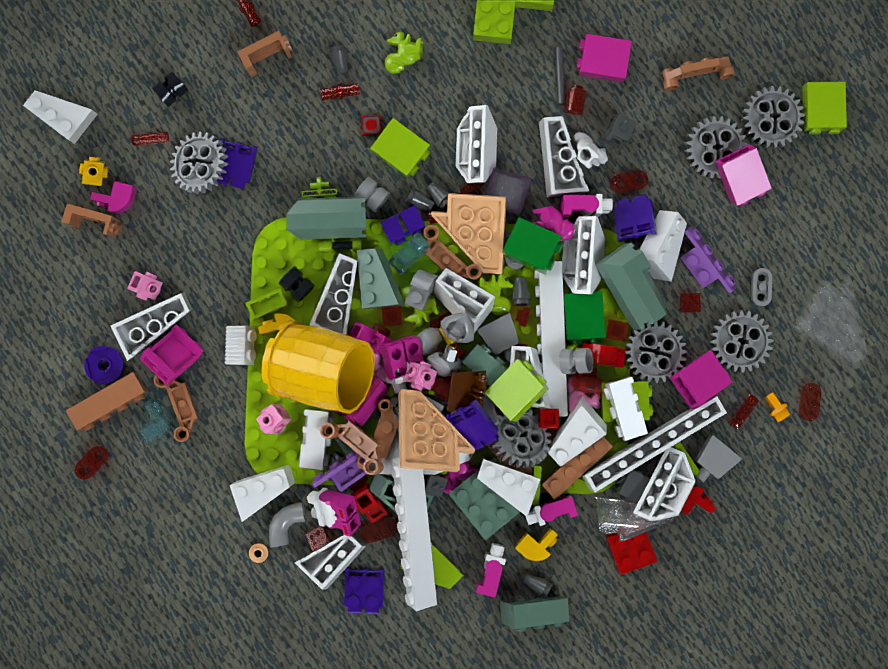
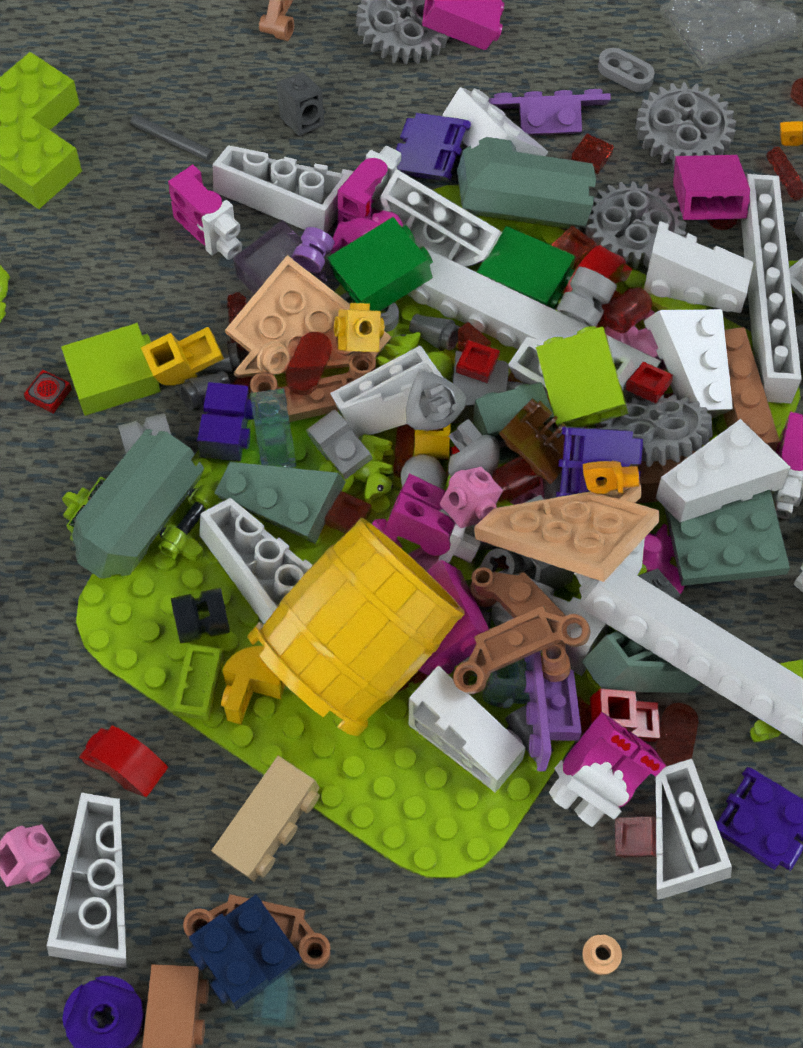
camera: 60 degrees left, 25 degrees down
(159, 407) = (243, 952): none -> dark blue plate
(172, 355) = (170, 880): dark pink panel -> none
(211, 296) = (124, 759): none -> red brick
(224, 377) = (267, 819): none -> tan brick
(240, 345) = (231, 761): white brick -> none
(258, 490) = (496, 873): white wedge -> none
(273, 419) = (378, 776): bright pink brick -> none
(282, 521) = (570, 876): light grey cylinder -> none
(423, 181) = (177, 360): none -> yellow brick
(447, 228) = (273, 358): none -> light nougat plate
(457, 245) = (308, 363): none -> clear red tile
(467, 437) = (615, 476): none -> light orange piece
(476, 144) = (181, 272): white wedge -> none
(487, 260) = (359, 328): none -> yellow brick
(508, 328) = (477, 361): none -> red tile
(514, 135) = (204, 213): none -> hips
(518, 207) = (313, 249): none -> medium lavender wheel
(575, 100) = (218, 132): clear red brick -> none
(588, 152) = (300, 144): white animal -> none
(604, 58) = (190, 74): dark pink brick -> none
(629, 182) = (375, 134): clear red plate -> none

